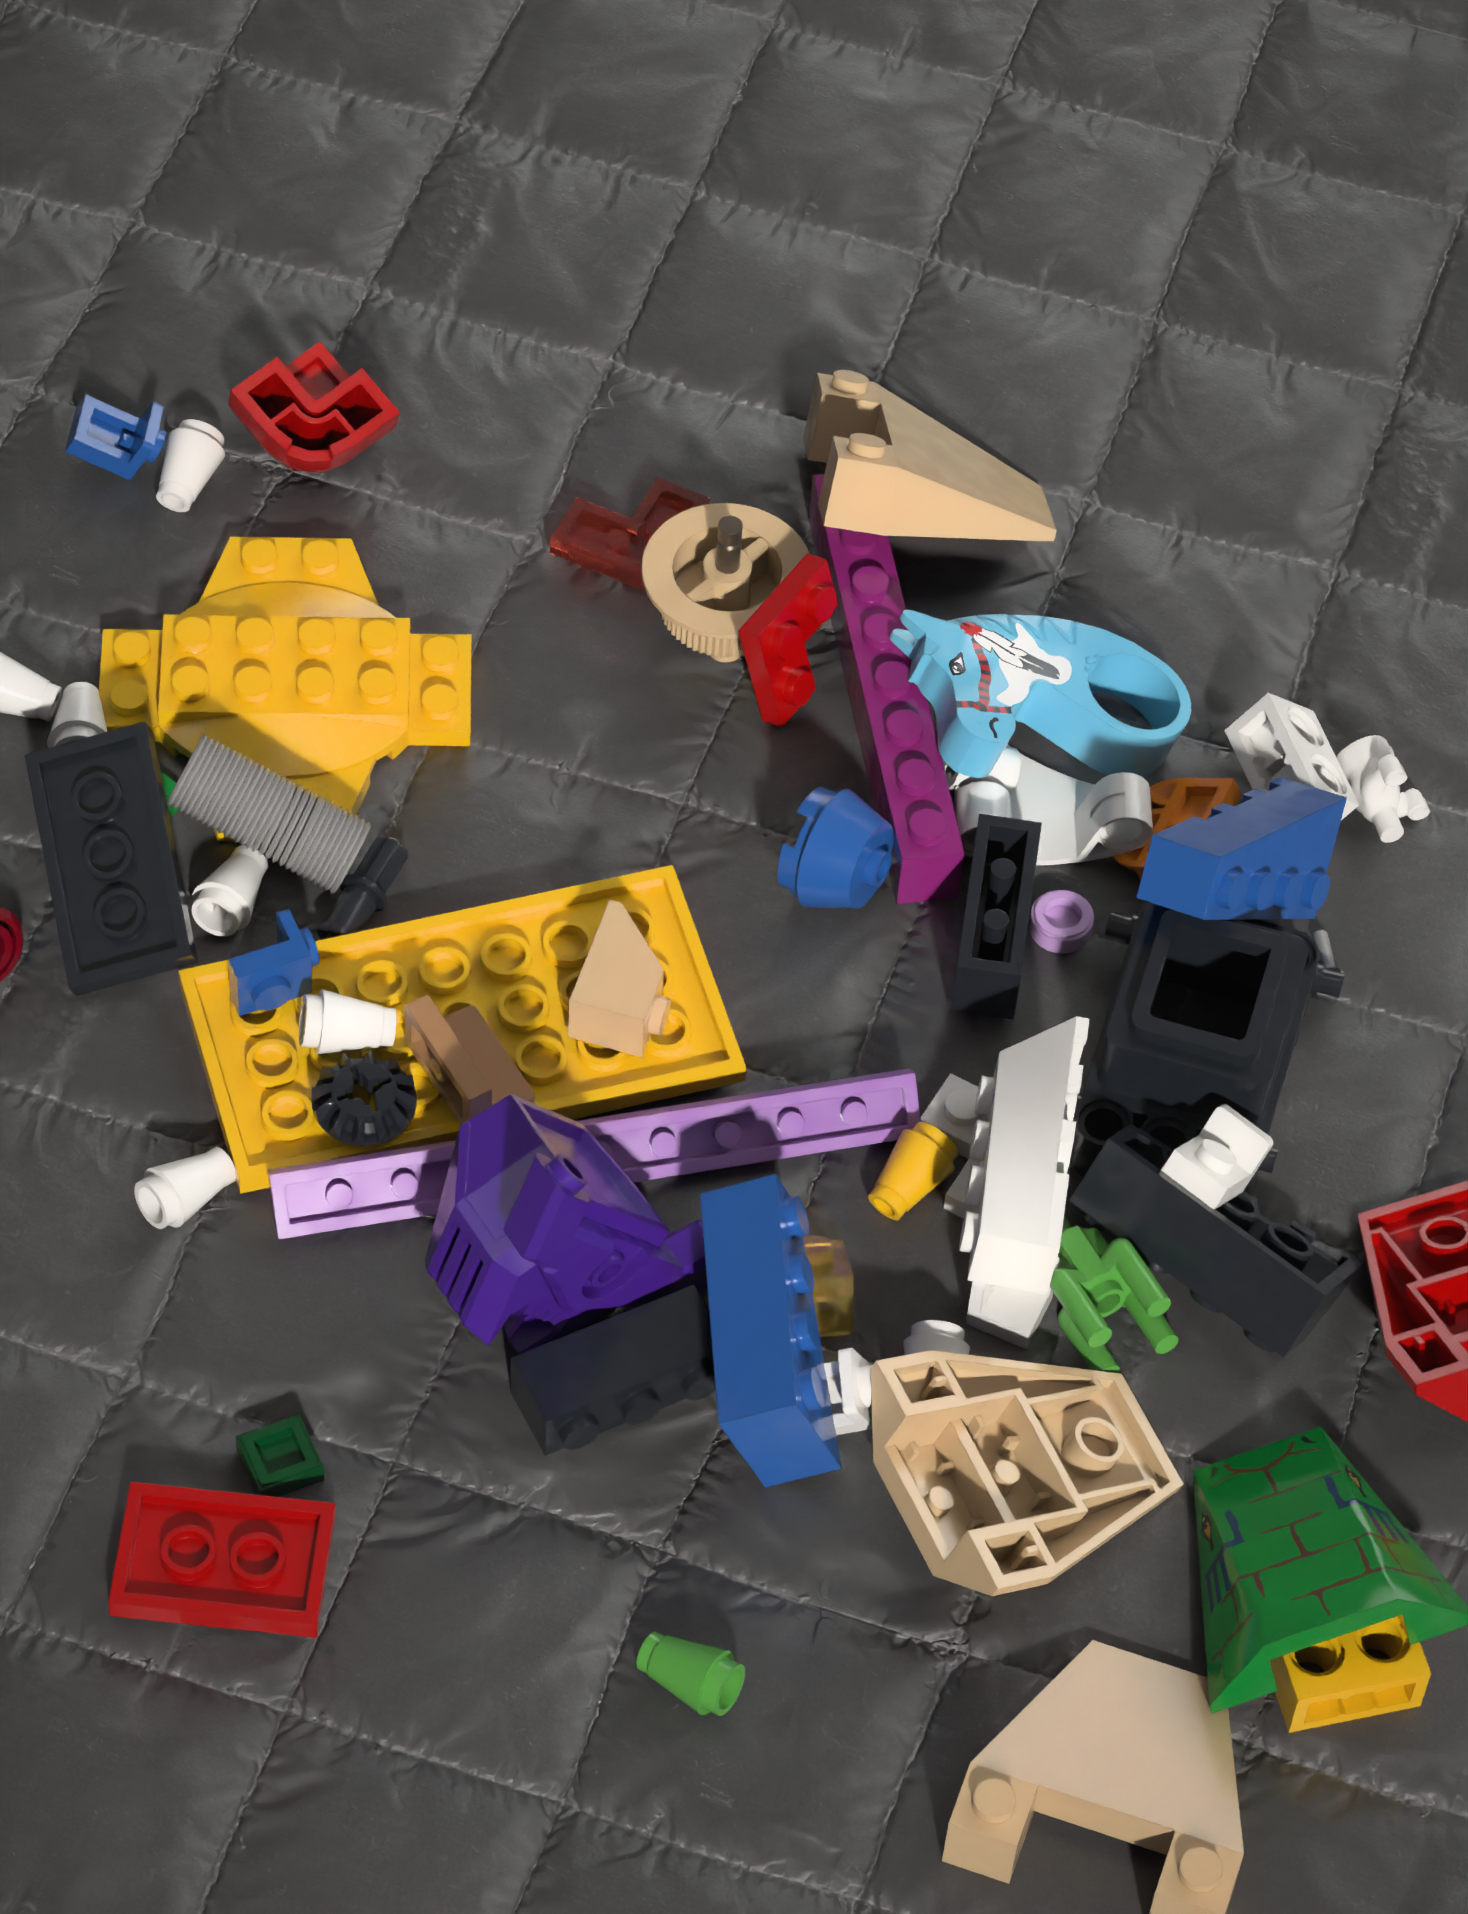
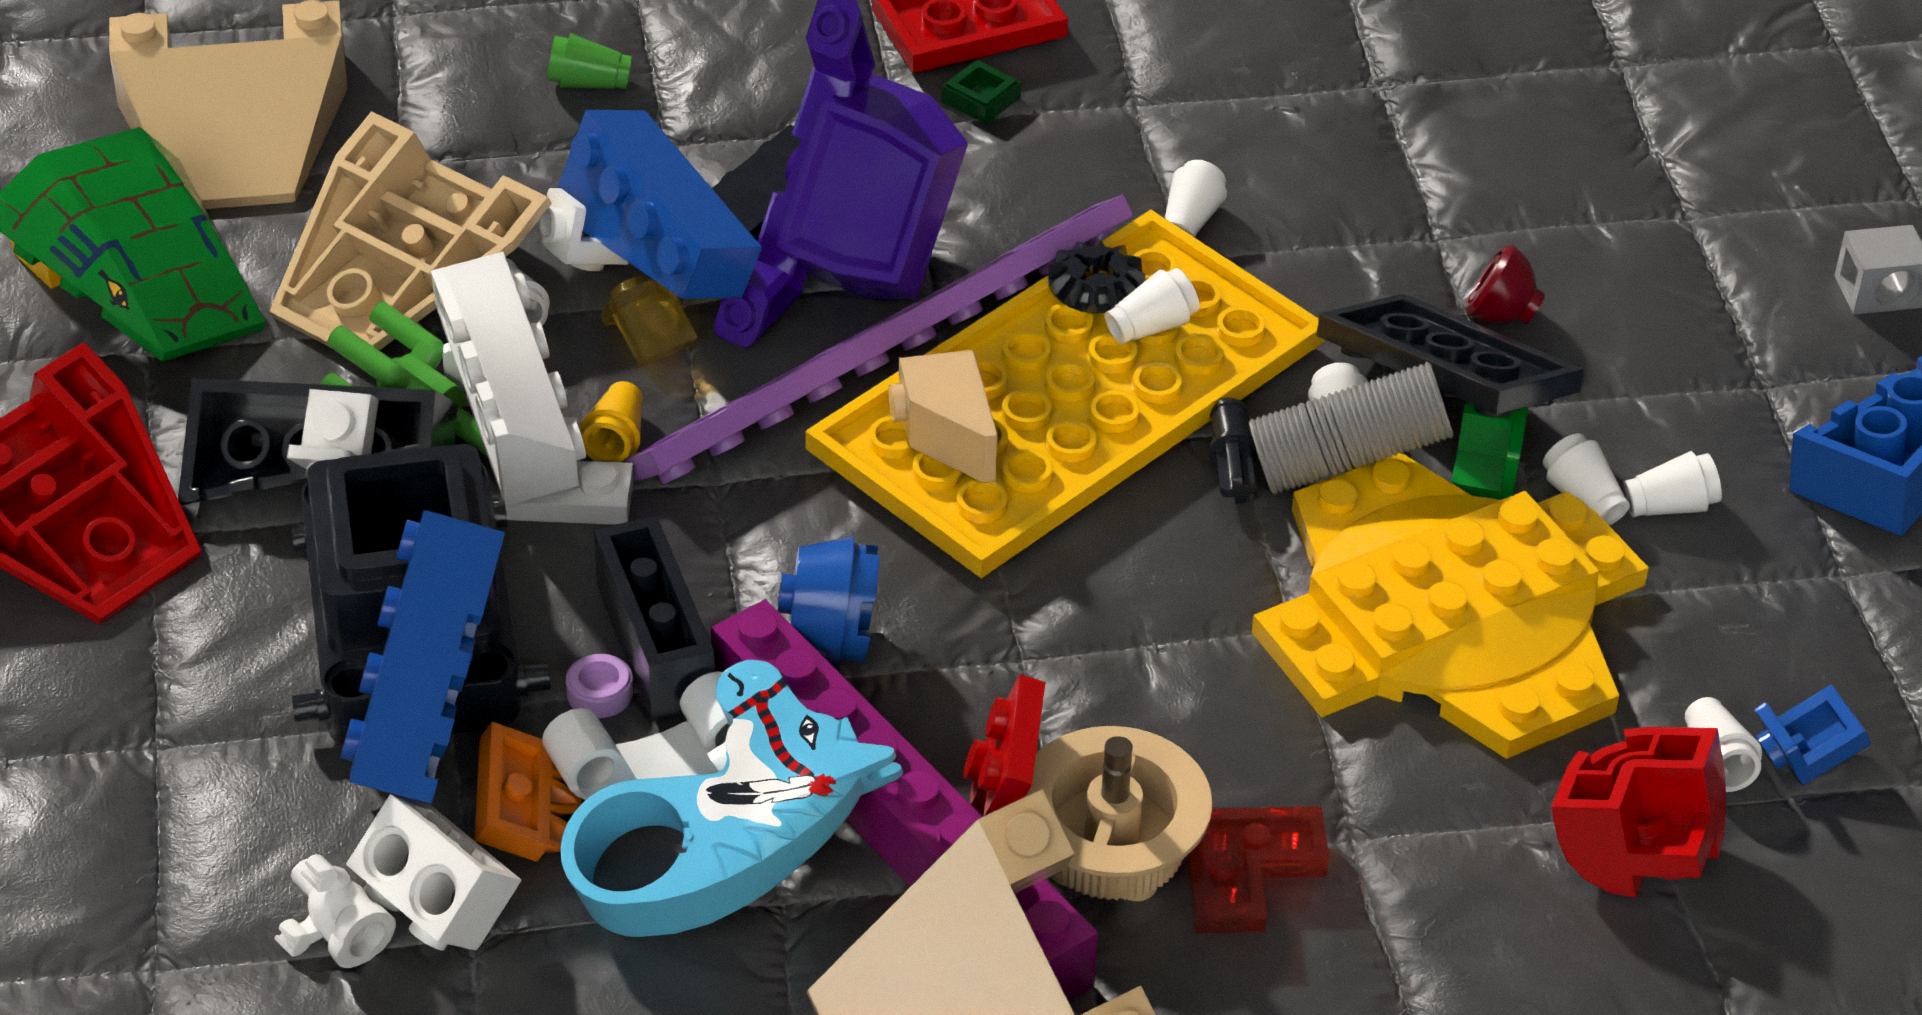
camera: 155 degrees right, 10 degrees down
(274, 973) = (1240, 319): blue bracket -> none
(462, 1058) = (1036, 320): medium nougat panel -> none
(1325, 952) = (314, 737): light grey piece -> none

